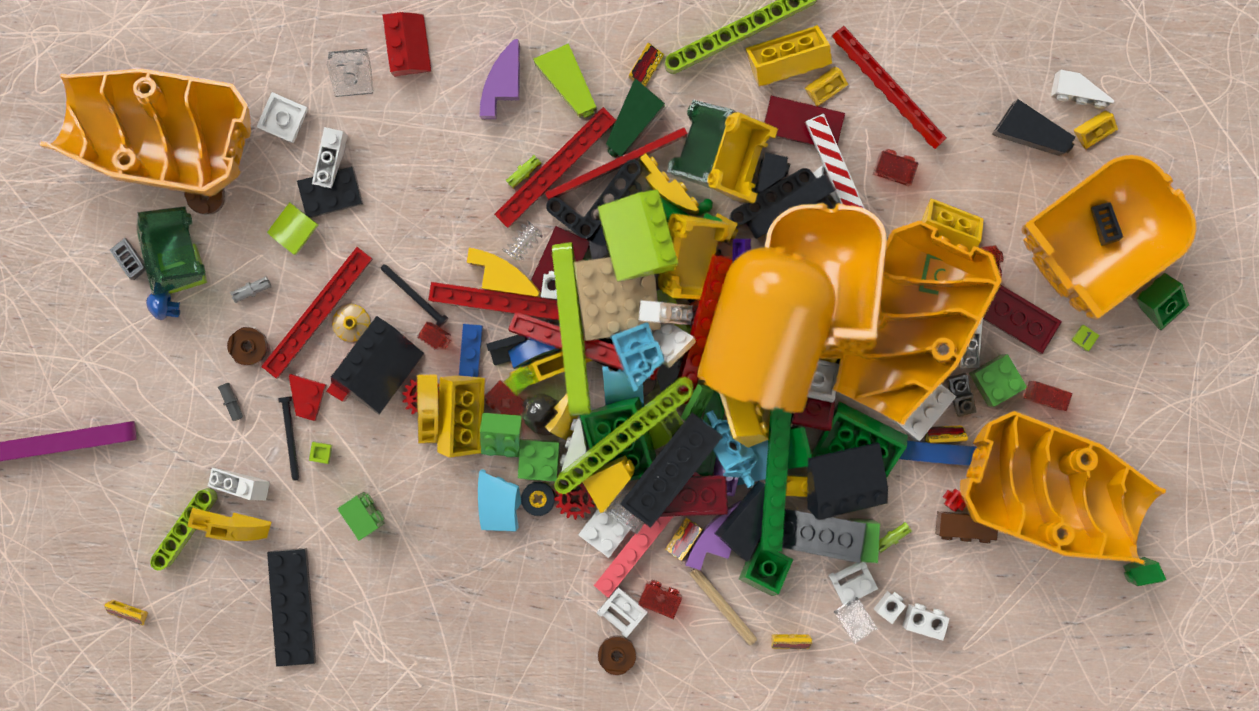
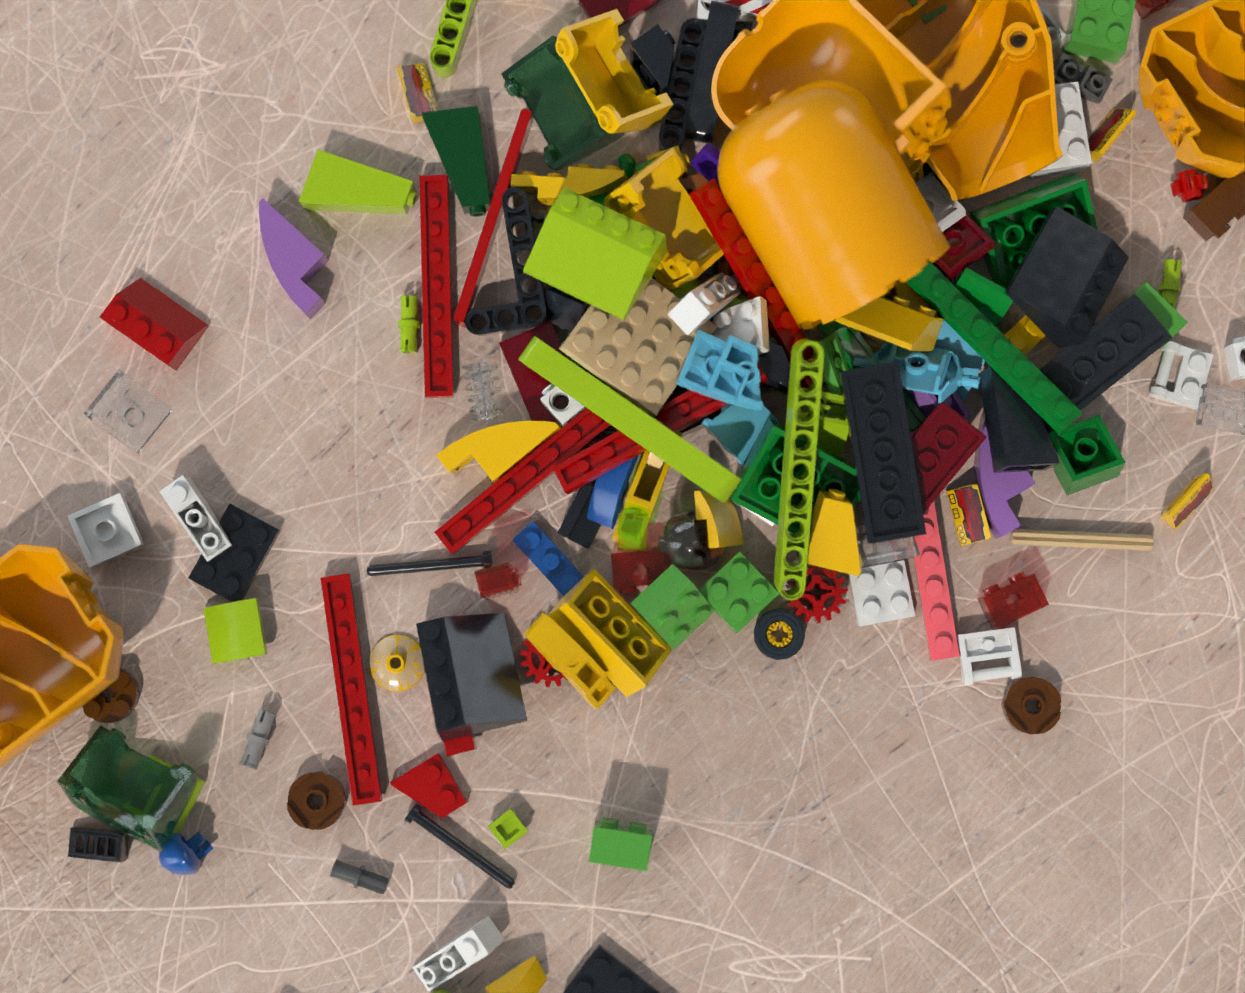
camera: 50 degrees left, 5 degrees down
(497, 503) = (744, 682): medium azure slope -> none
(576, 445) = (758, 537): white slope -> none
(938, 453) = (1123, 156): blue slope -> none

